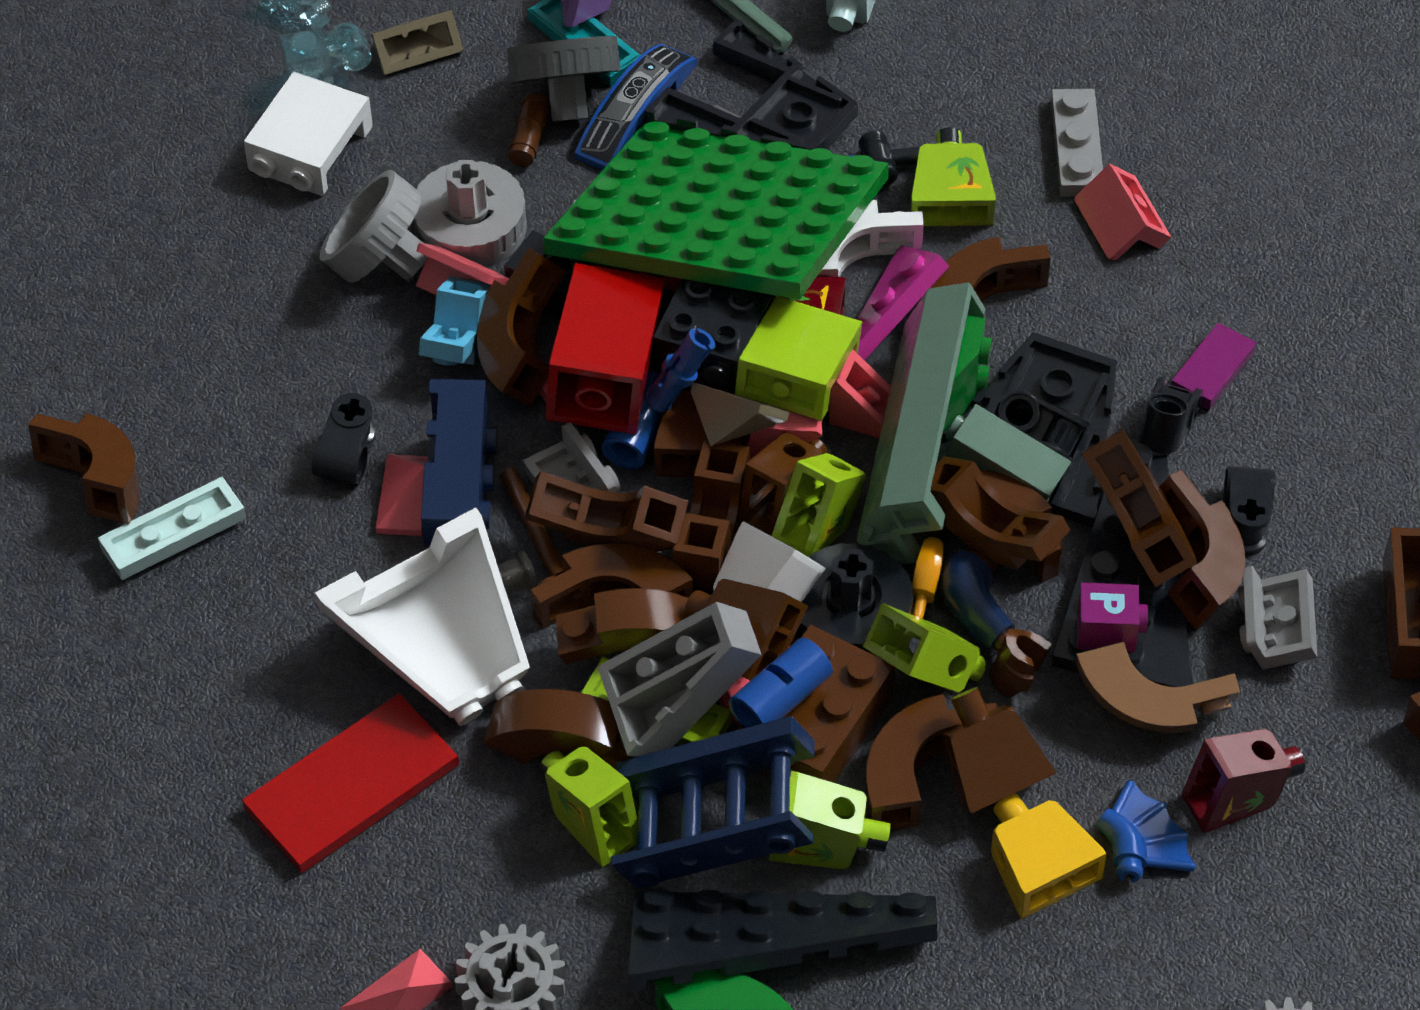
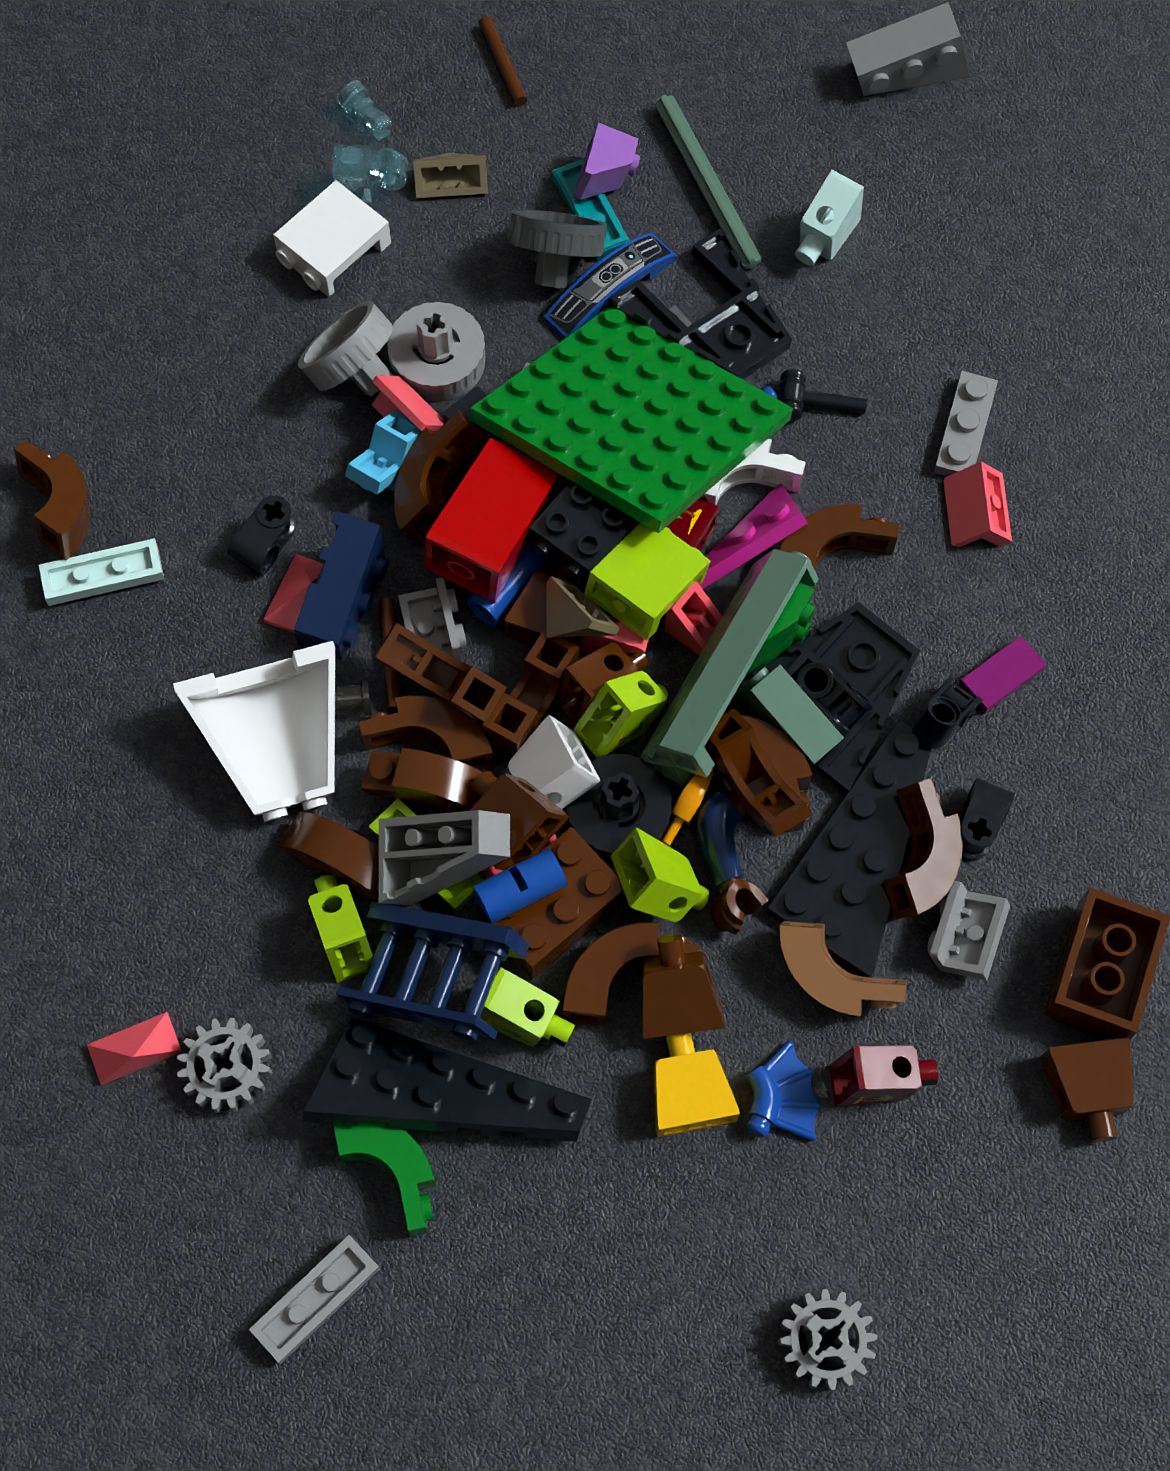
camera: 15 degrees right, 15 degrees up
(350, 783) = (163, 845): red tile -> none
(530, 126) = (514, 284): reddish brown piece -> none
(679, 370) = (542, 563): blue pin -> none
(953, 183) = (842, 437): lime torso -> none
(1109, 616) = (823, 895): magenta brick -> none
(1140, 507) = (887, 807): reddish brown arch -> none

